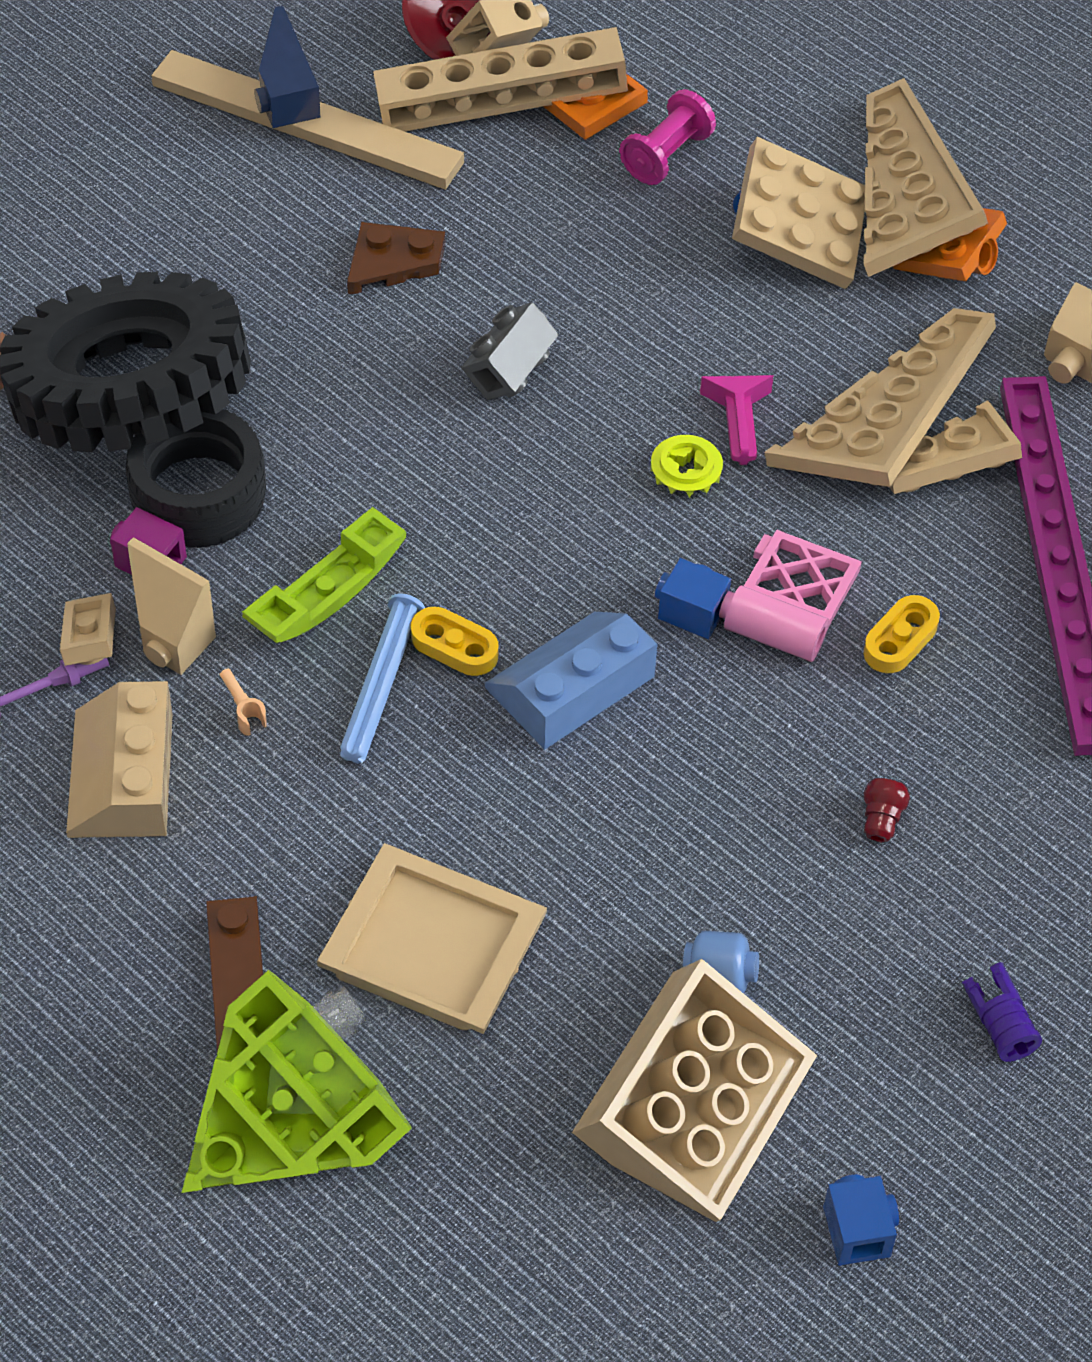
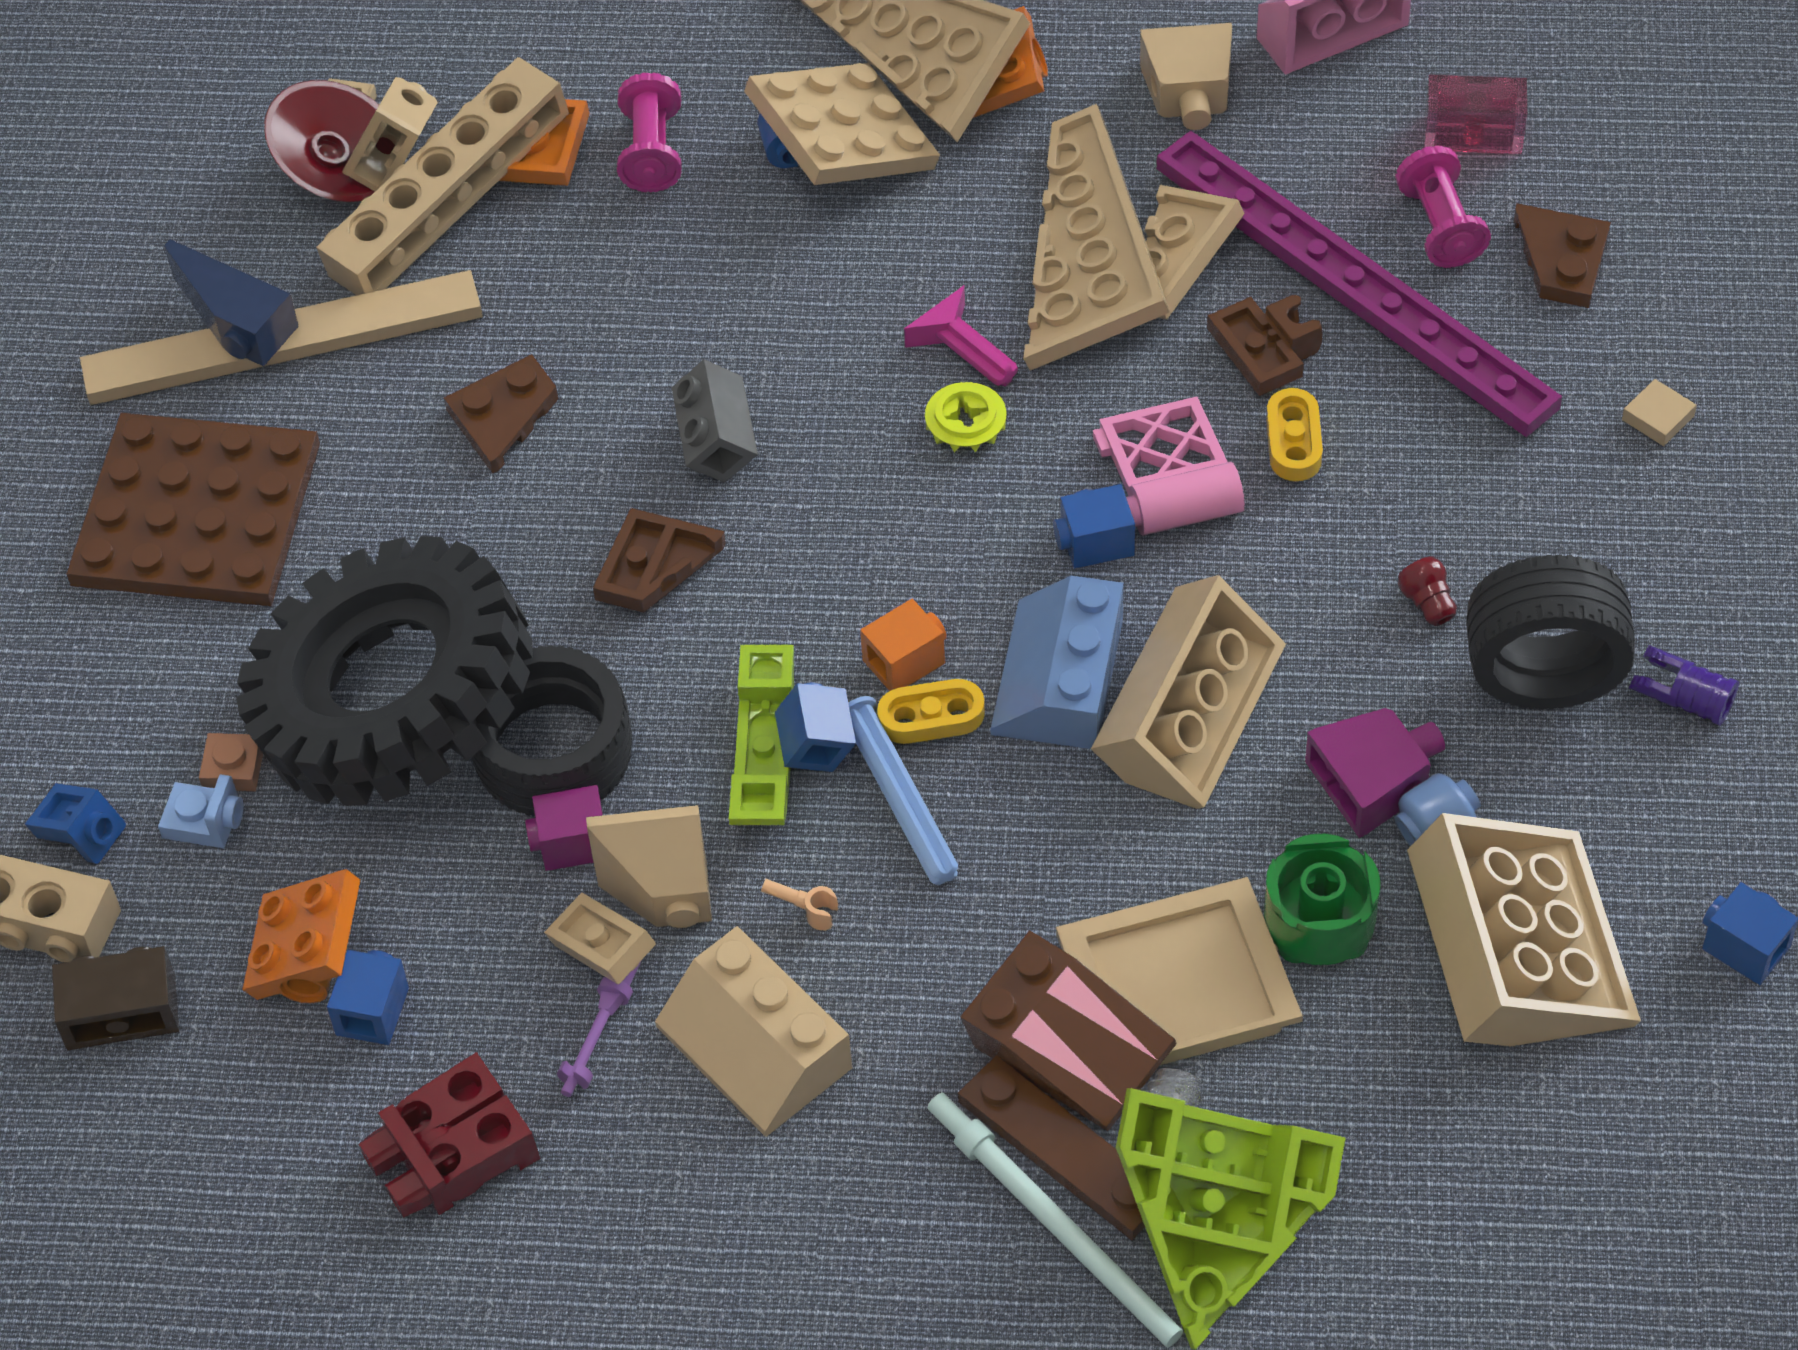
camera: 35 degrees left, 0 degrees up
(144, 190) = (194, 509): none -> reddish brown plate
(186, 944) = (978, 1143): none -> light aqua bar
(309, 910) = (1066, 1030): none -> reddish brown slope
(363, 594) = (815, 727): none -> blue brick
(382, 414) = (653, 559): none -> reddish brown wing
(481, 584) = (903, 645): none -> orange brick
(572, 959) = (1321, 900): none -> green brick
(638, 756) = (1189, 693): none -> tan slope
(712, 894) = (1371, 764): none -> magenta torso
(918, 893) = (1542, 596): none -> black tyre
(950, 559) = (1267, 344): none -> reddish brown plate

